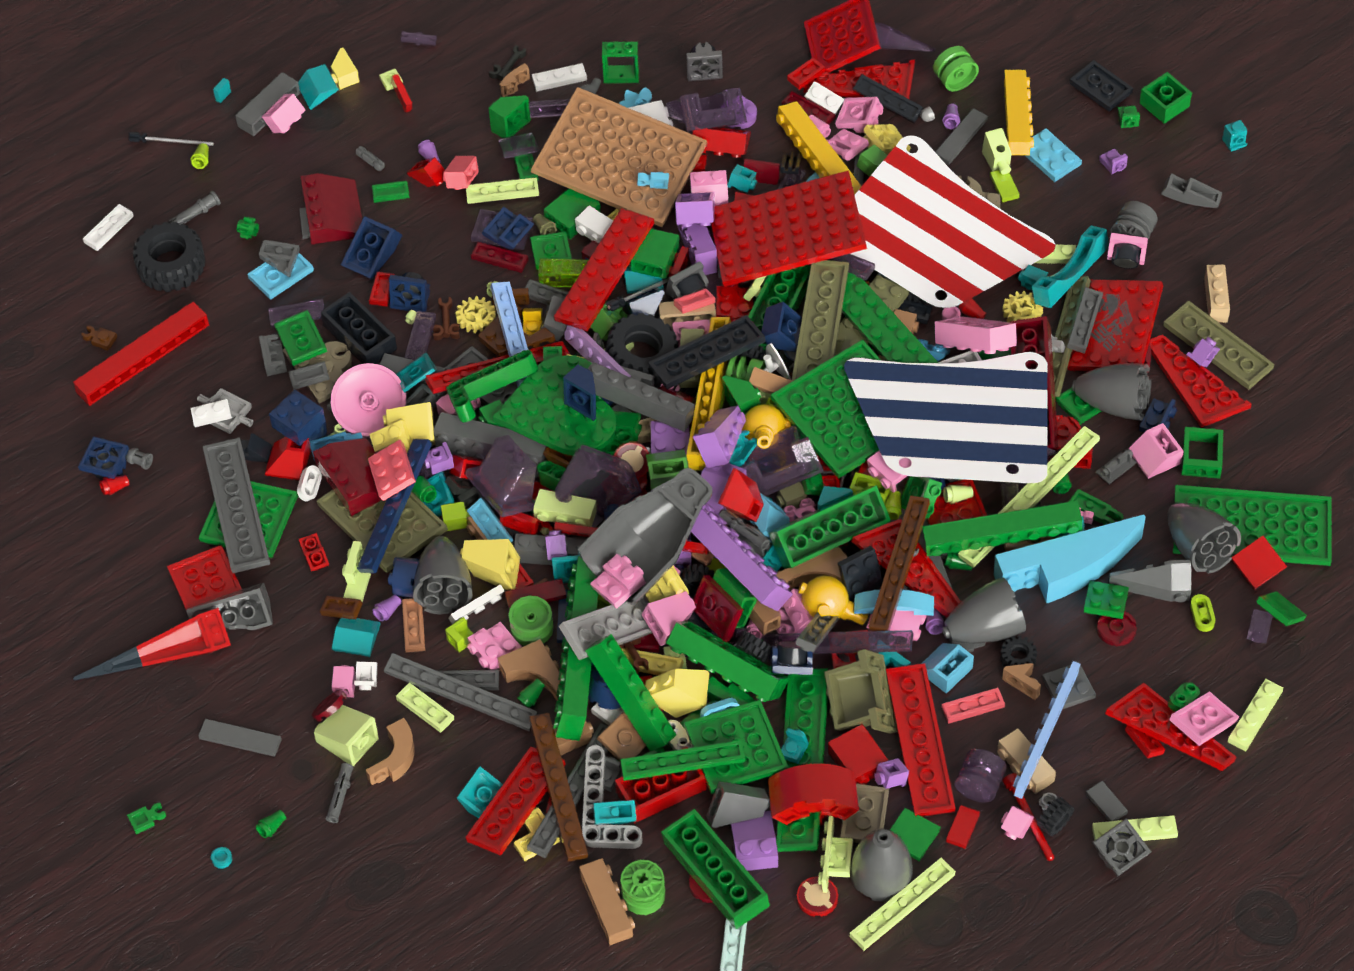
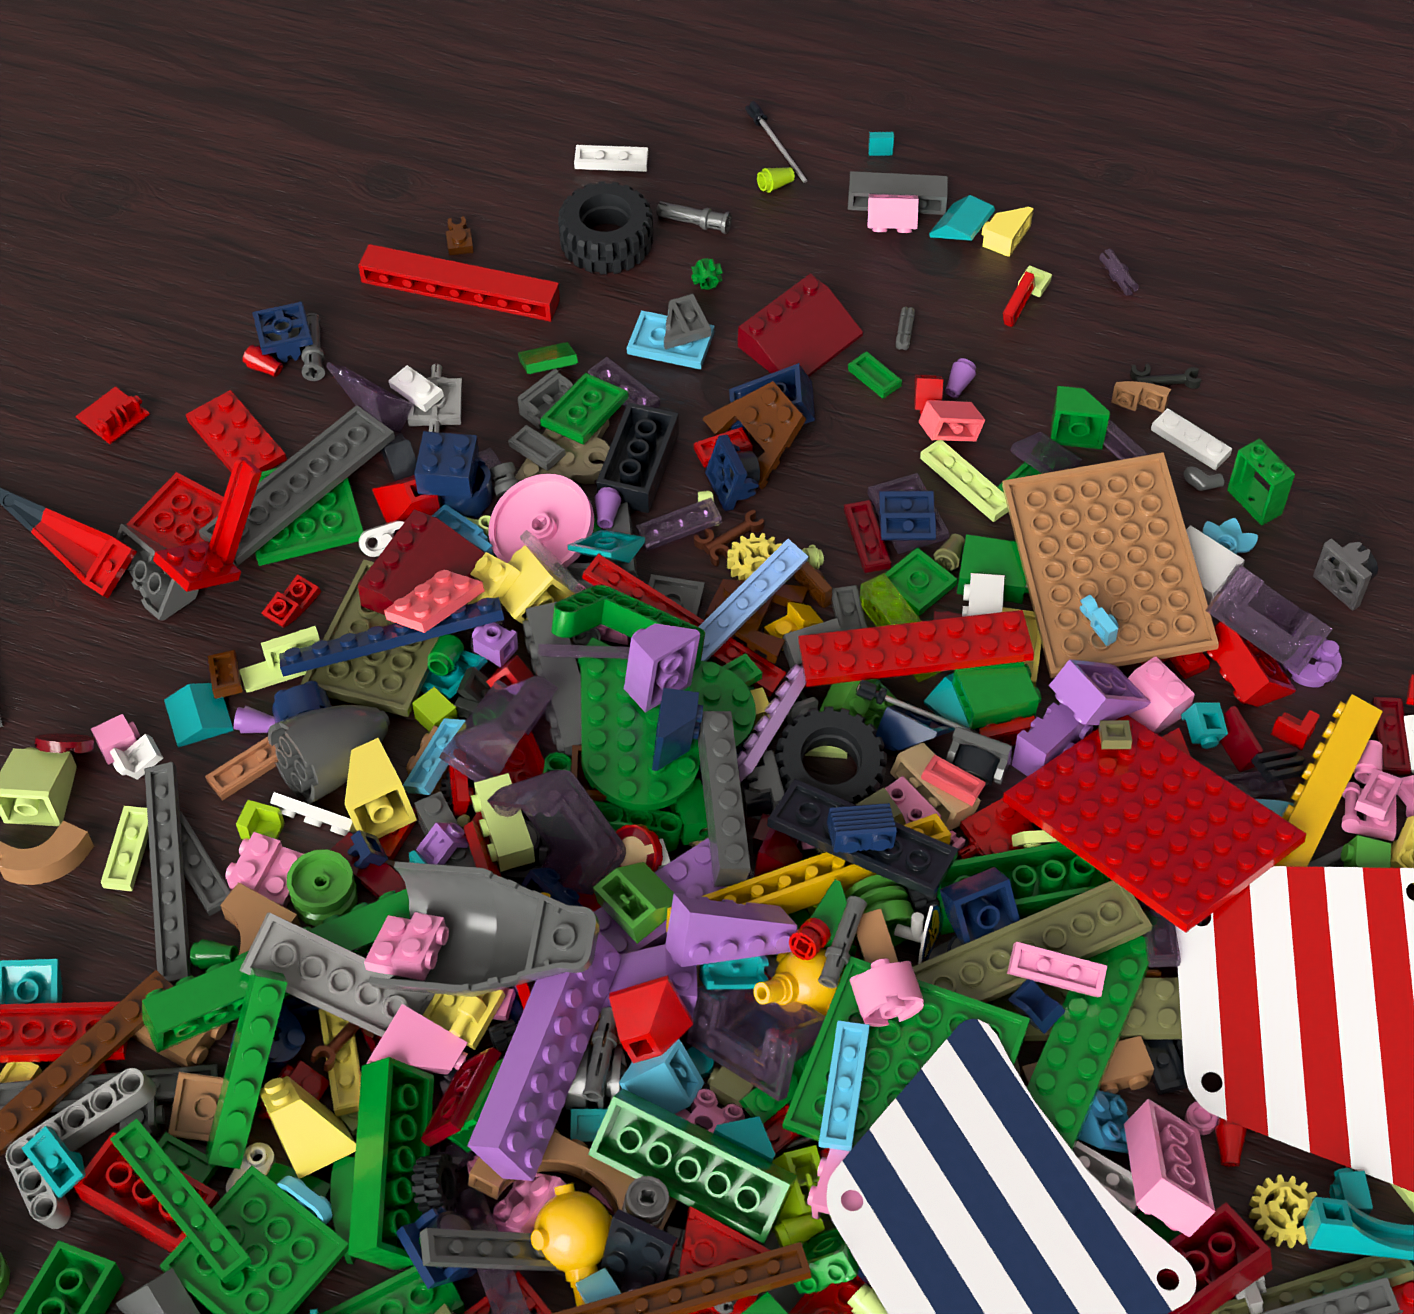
camera: 55 degrees right, 0 degrees up
(86, 582) = (113, 414): none -> red hinge
(160, 526) = (235, 433): none -> red plate
(196, 439) = (375, 400): none -> clear purple wedge
(244, 337) = (548, 358): none -> green tile
(261, 574) = (212, 563): none -> red bracket
(321, 401) = (503, 477): none -> dark grey wheel
(381, 358) = (607, 505): none -> medium lavender cone
(383, 406) = (552, 562): none -> clear tile
(385, 252) = (767, 417): none -> reddish brown wing
(496, 407) = (579, 651): none -> clear purple tile
(527, 584) = (368, 848): none -> dark blue tile
(540, 376) = (658, 660): none -> medium lavender slope
(707, 344) = (861, 828): none -> dark blue brick
(727, 215) = (1115, 734): none -> olive plate
(749, 405) = (809, 939): none -> red wheel
(767, 397) = (837, 954): none -> dark grey pin
(774, 146) = (1295, 730): none -> red panel
(810, 384) = (887, 992): none -> bright pink brick
(836, 551) = (647, 1200): none -> flat silver wheel
(841, 434) = (844, 1086): none -> medium azure plate
(843, 132) = (1378, 794): none -> bright pink plate
(844, 314) = (1057, 969): none -> bright pink plate
(851, 337) = (1036, 1005): none -> dark blue panel

